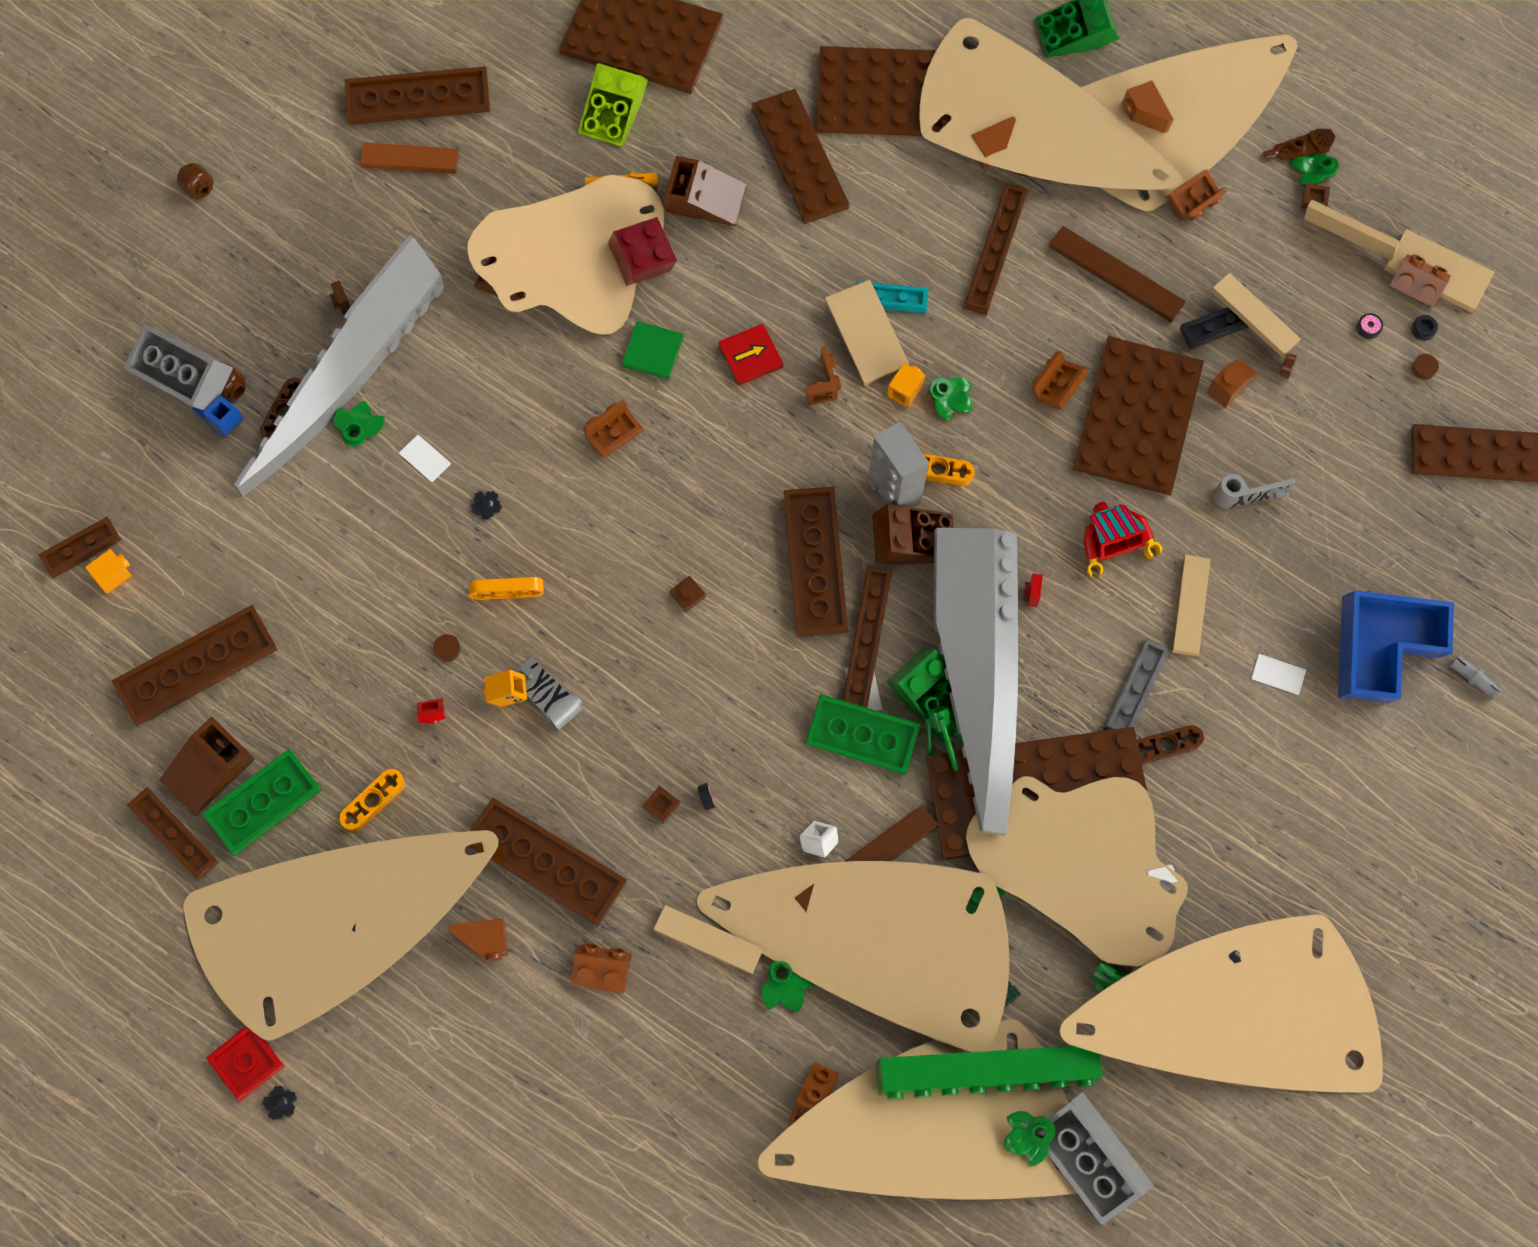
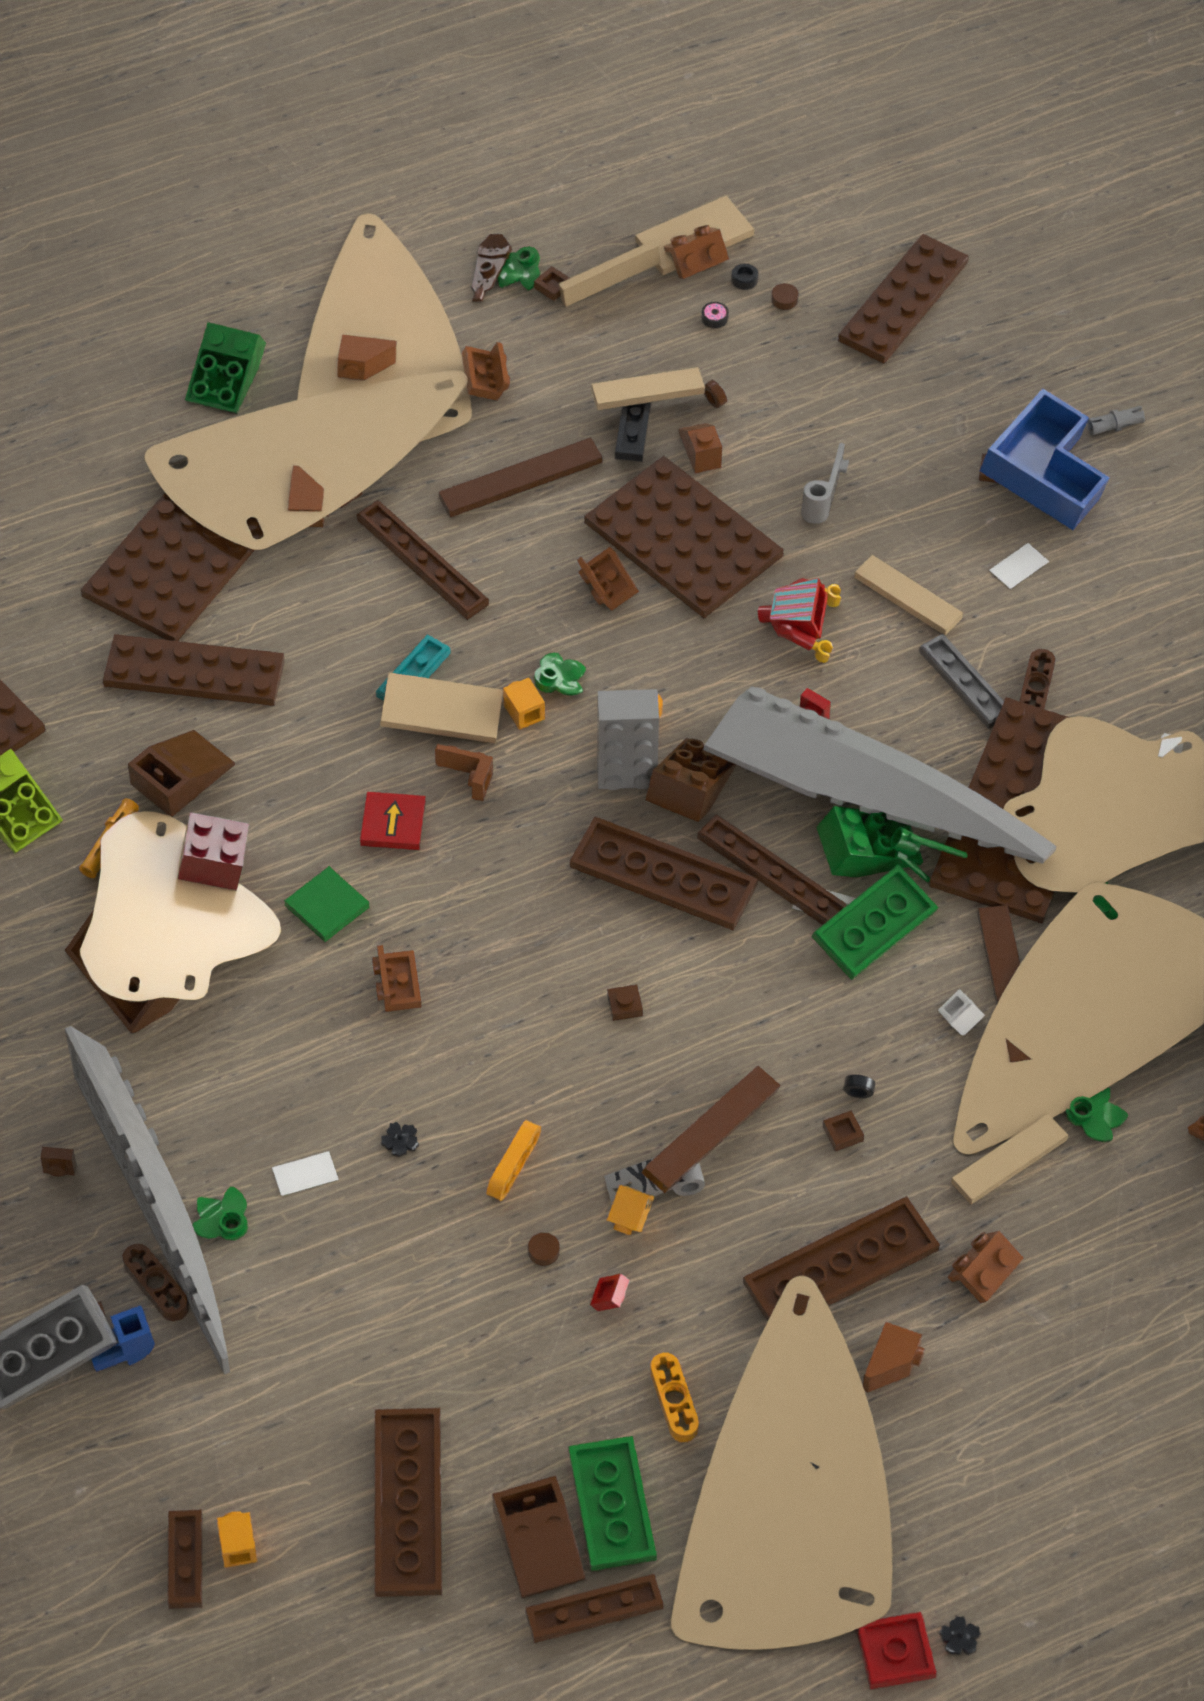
camera: 60 degrees left, 15 degrees down
(601, 709) = (711, 1129): none -> reddish brown tile

